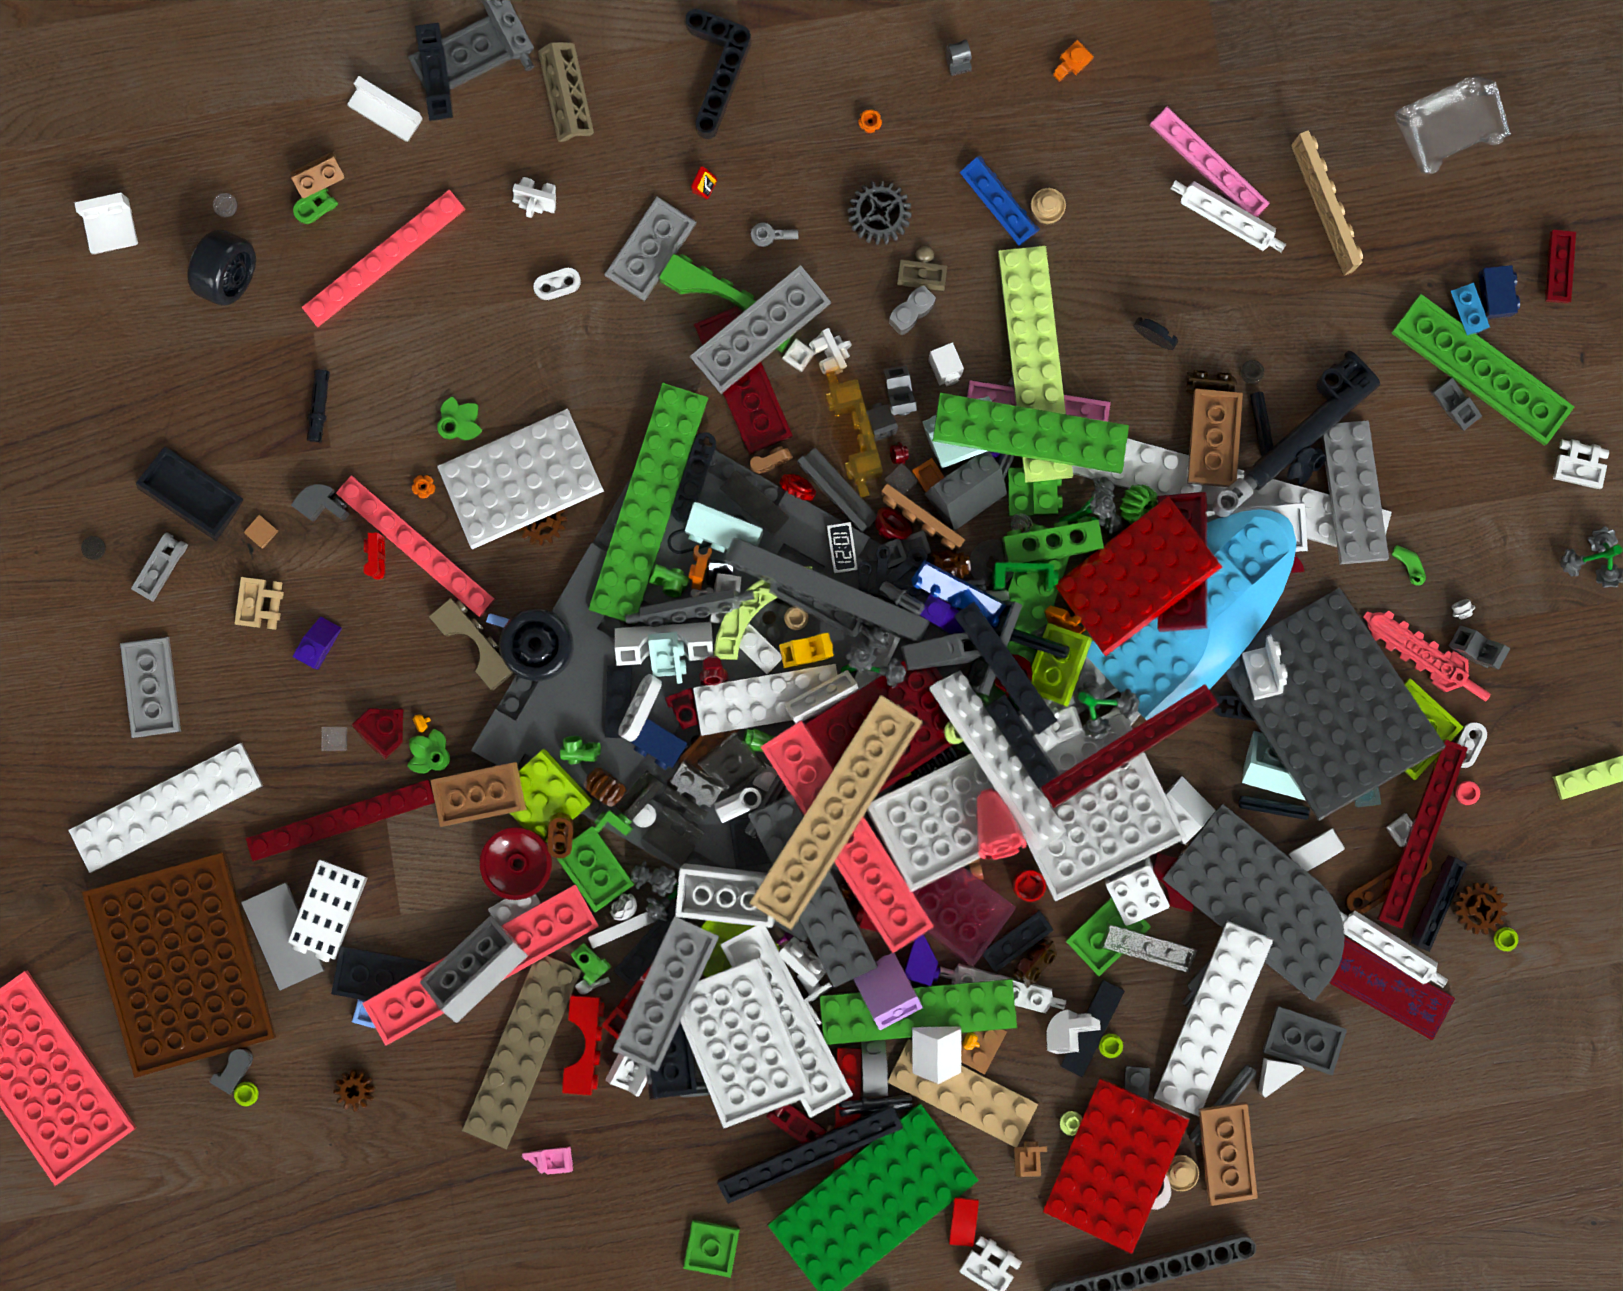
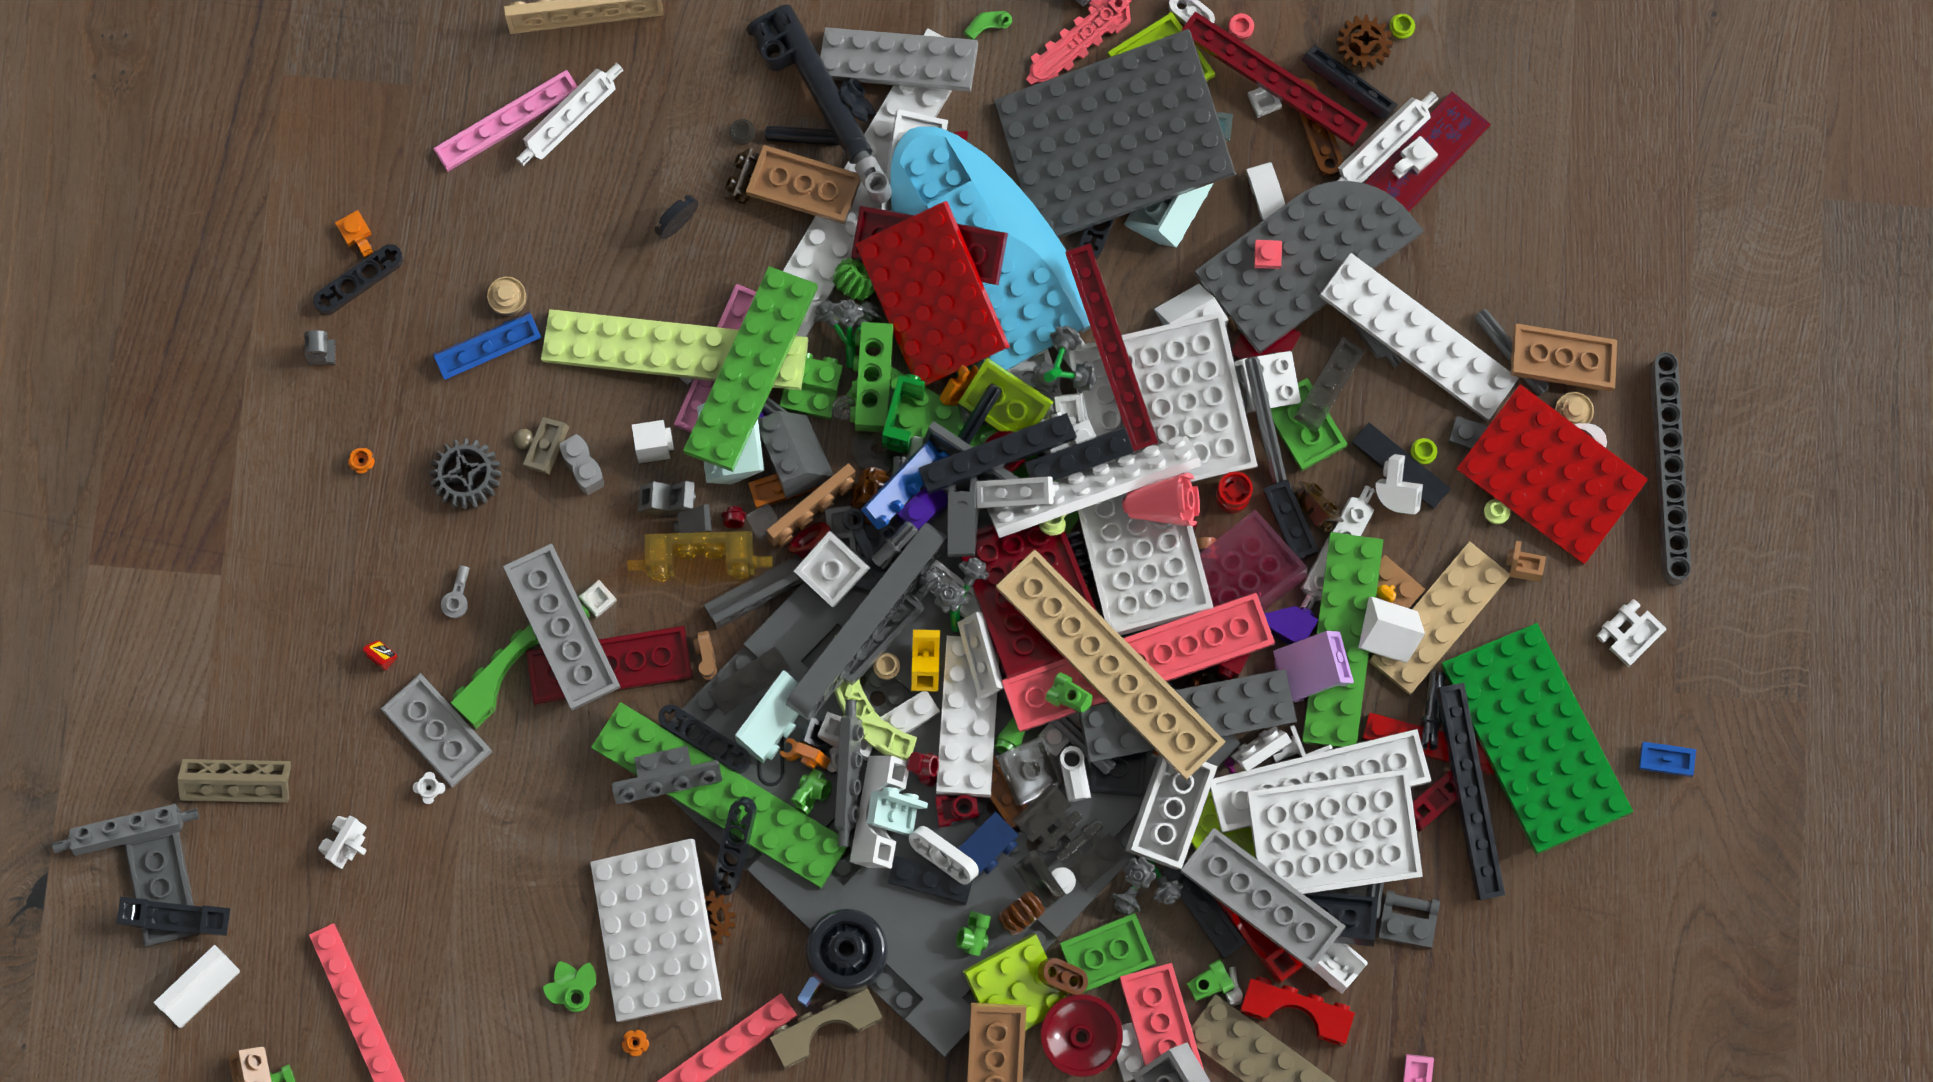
camera: 80 degrees left, 10 degrees down
(557, 283) = (448, 840): white plate -> none
(596, 249) = (428, 780): none -> white plate
(605, 528) = (738, 847): none -> black beam
(619, 821) = (1064, 907): bright green bracket -> none
(620, 929) = (1180, 939): white beam -> none
(624, 907) = (1157, 930): white plate -> none
(652, 451) = (664, 774): none -> dark grey bracket
(678, 1123) = (1407, 928): none -> dark grey plate
(711, 1248) = (1549, 925): bright green tile -> none
(723, 70) = (259, 601): black beam -> none
(798, 486) = (743, 631): red gear -> none
(800, 782) = (1068, 694): none -> bright green plate
(834, 349) = (604, 558): white hips -> none
(842, 548) = (810, 601): tile -> none
(867, 549) = (831, 569): none -> white tile
(874, 1068) = (1393, 700): light grey brick -> none
(963, 1221) = (1578, 648): red slope -> none
(972, 692) = (1015, 492): none -> white plate
(1028, 77) = (355, 276): none -> black beam
(1100, 898) = (1265, 419): none -> dark grey axle
(1253, 866) = (1267, 254): none -> coral plate
(1264, 670) = (1064, 190): white bracket -> none
(1274, 807) = (1210, 223): black axle -> none
(1275, 1074) = (1492, 290): white slope -> none
(1304, 1040) = (1462, 252): dark grey plate -> none
(1382, 979) = (1415, 156): none -> white plate

